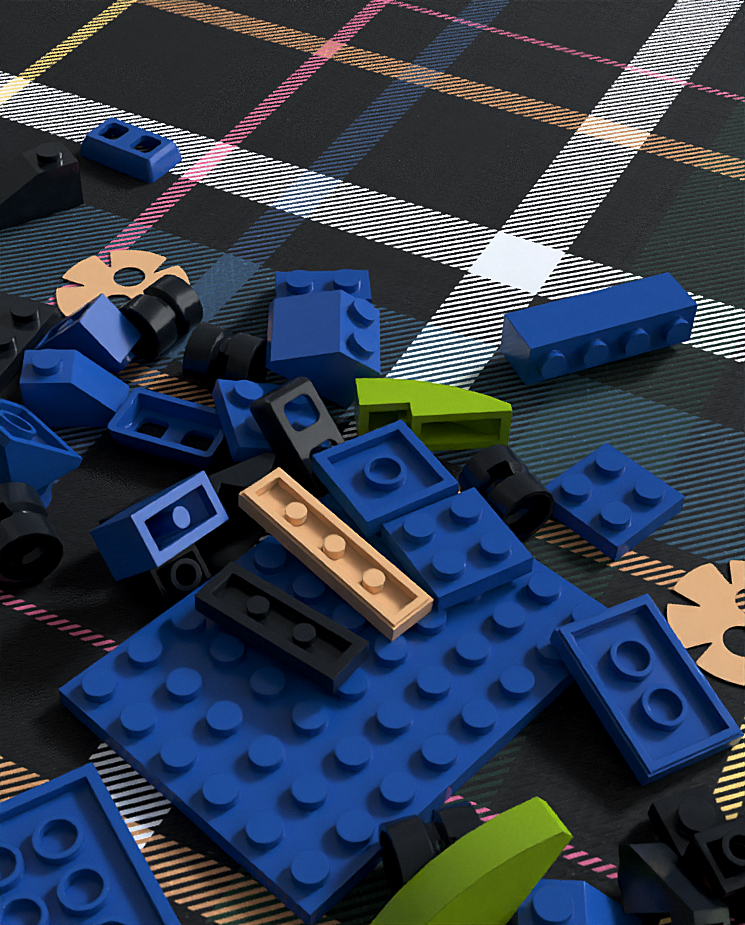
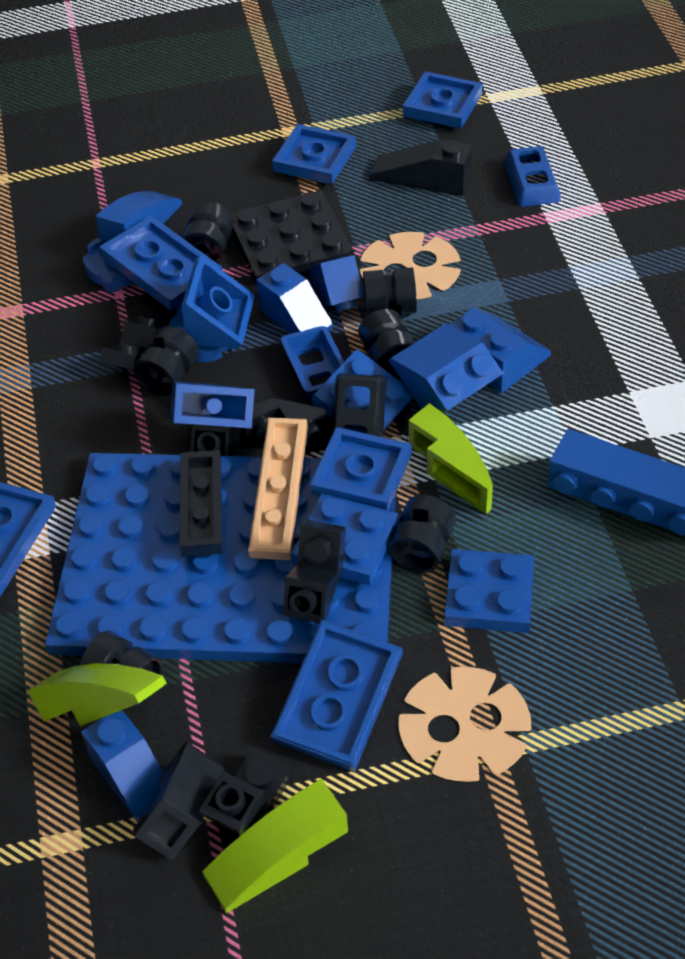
camera: 55 degrees right, 5 degrees up
(498, 602) = (316, 576): none -> black slope

